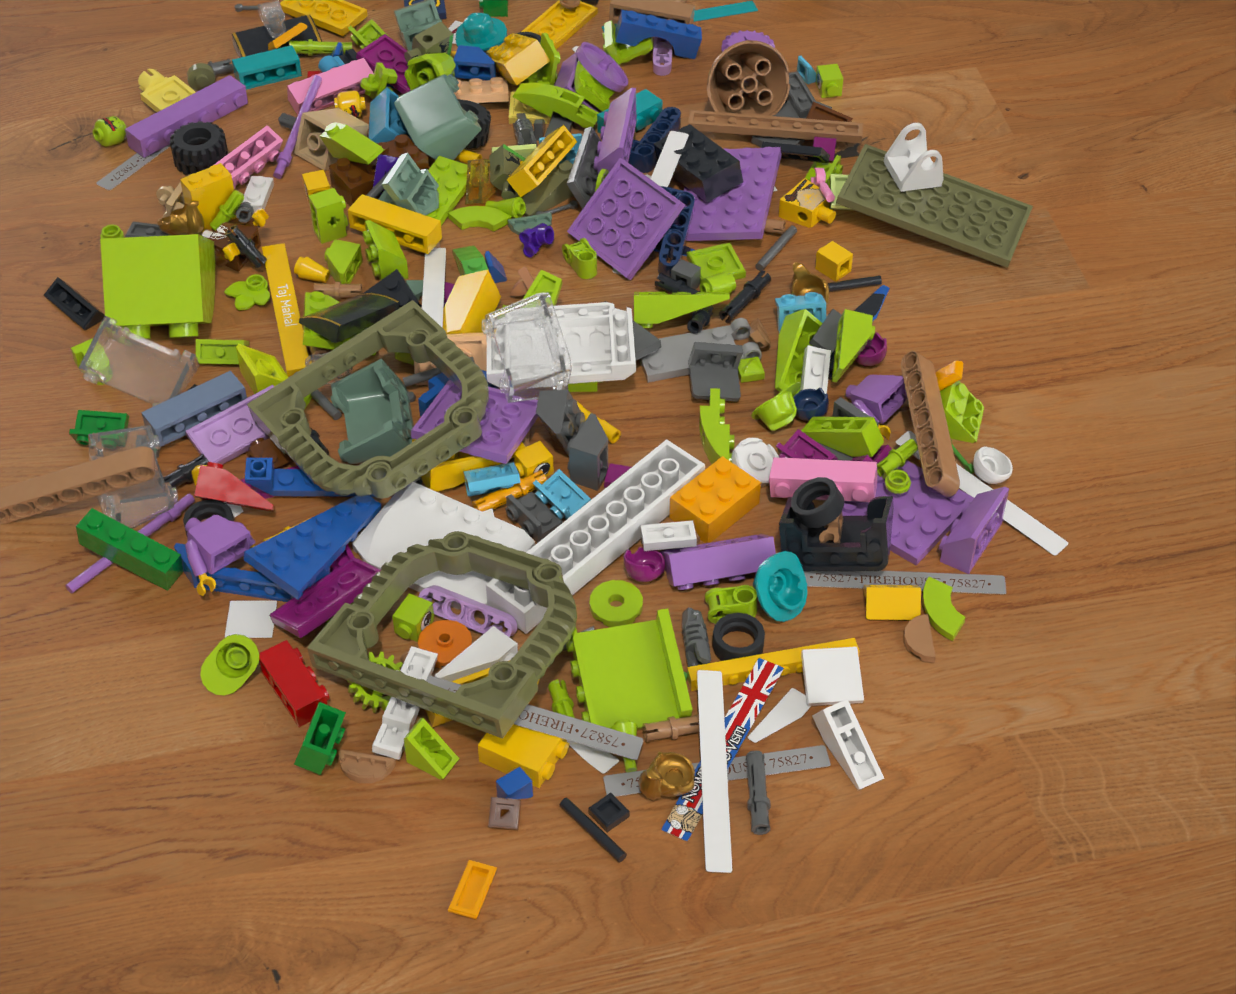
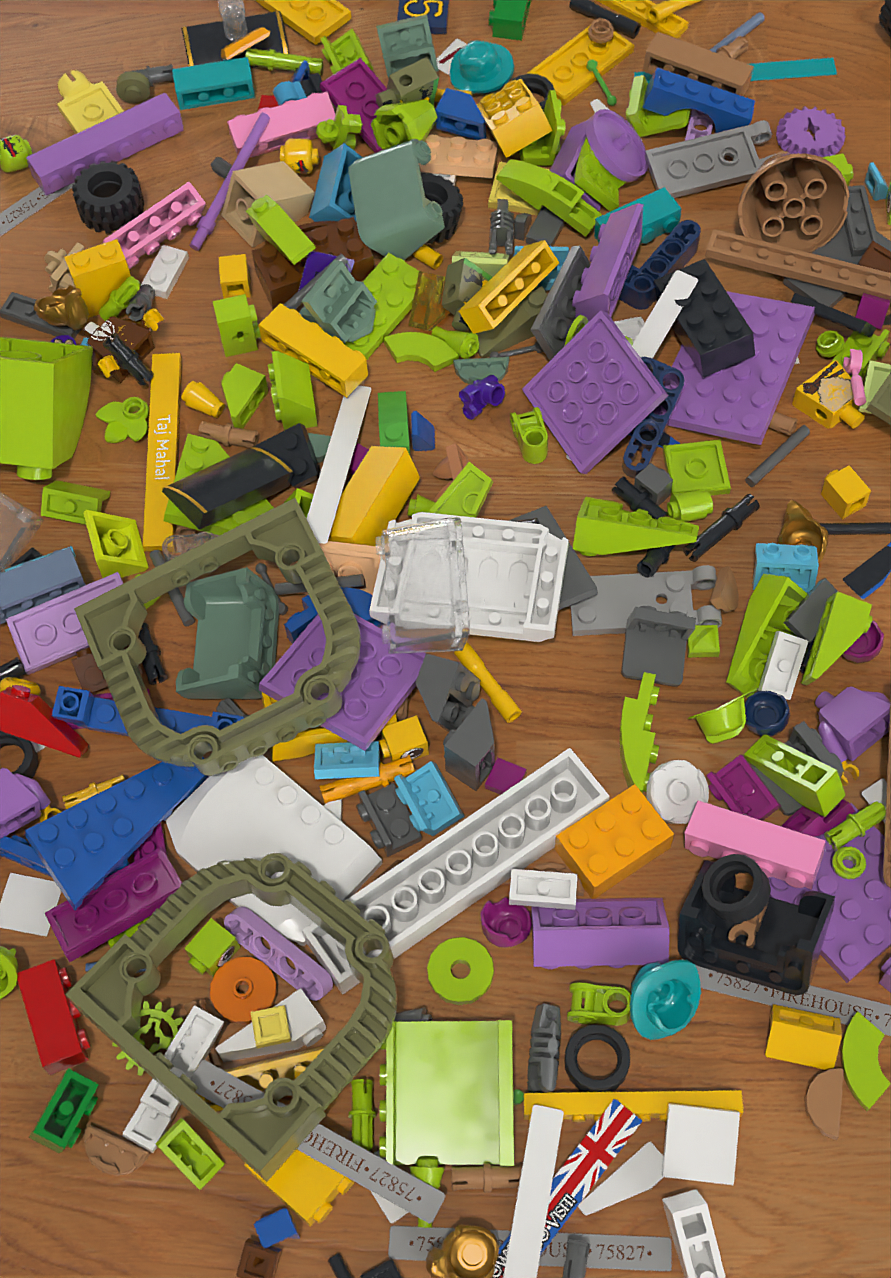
camera: 15 degrees right, 15 degrees up
(476, 652) = (270, 1026): none -> light yellow tile
(568, 23) = (592, 66): none -> bright green hinge
(670, 72) = (700, 162): none -> light grey hinge
(797, 172) = (830, 343): none -> lime plate

